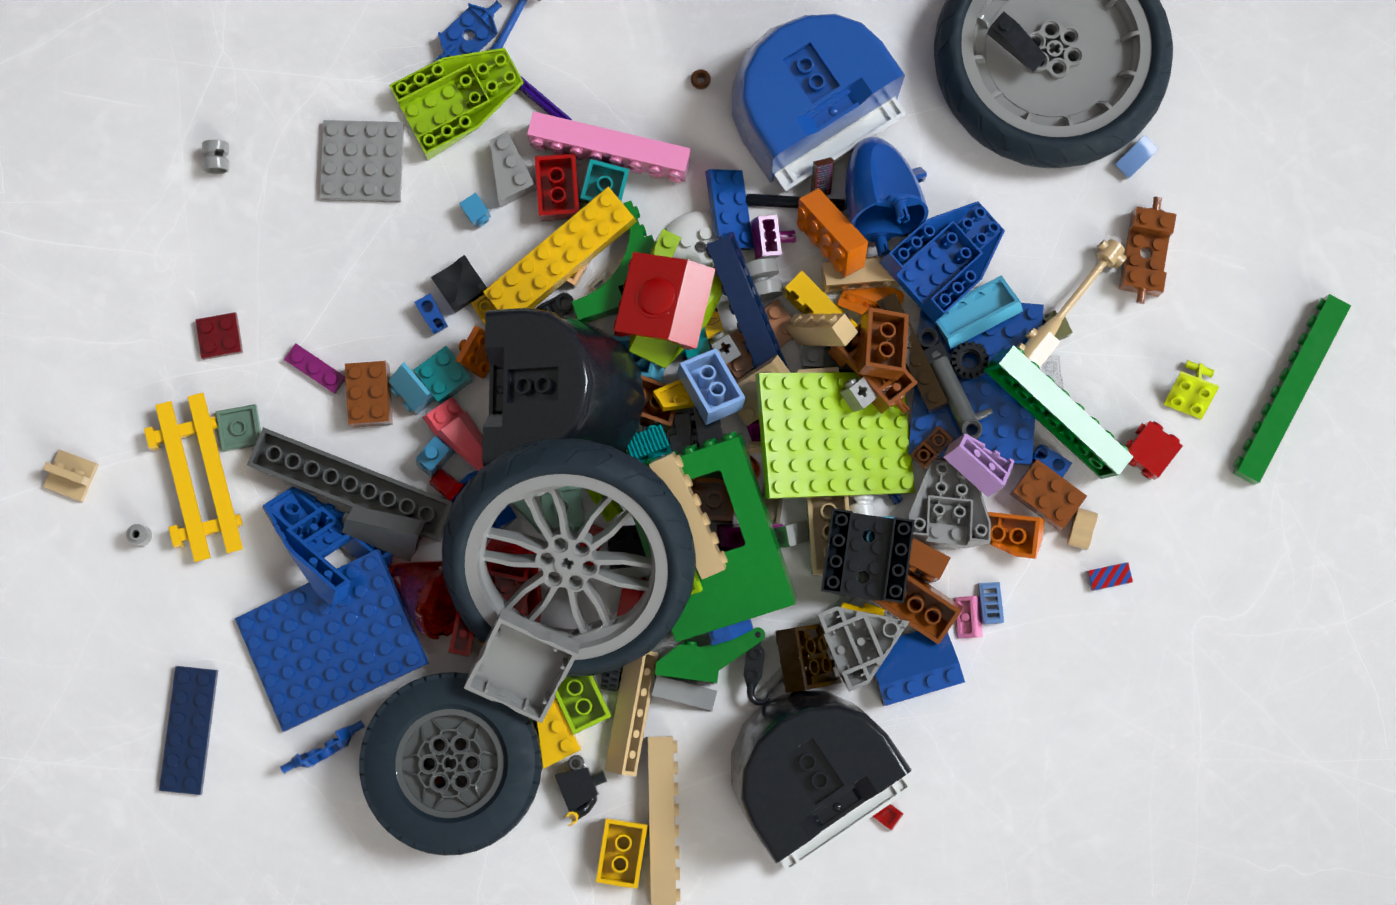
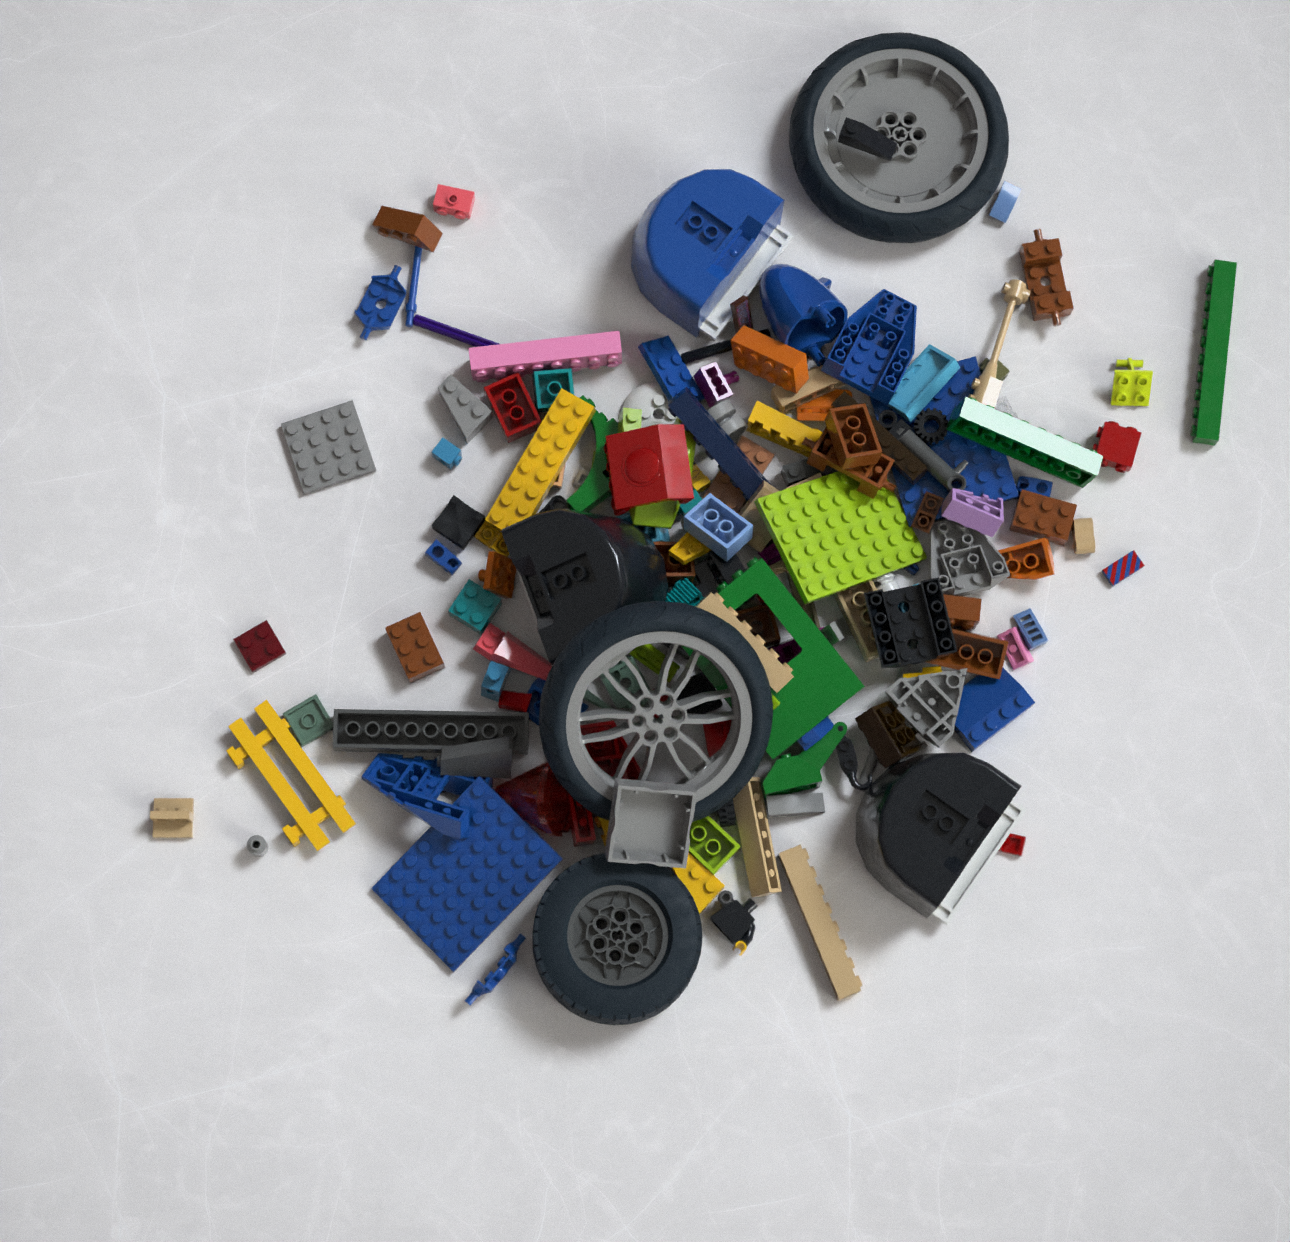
camera: 25 degrees left, 5 degrees down
(188, 730) = (367, 1002): dark blue plate -> none
(215, 156) = (197, 492): light grey wheel -> none
(315, 368) = (357, 643): magenta plate -> none
(411, 389) = (451, 628): medium azure slope -> none
(455, 96) = (391, 361): lime wedge -> none
(621, 853) = (795, 962): yellow brick -> none
(697, 74) = (601, 264): reddish brown plate -> none
(732, 351) = (722, 492): light grey brick -> none
(821, 329) = (794, 444): tan brick -> none
(858, 394) = (847, 488): light grey brick -> none

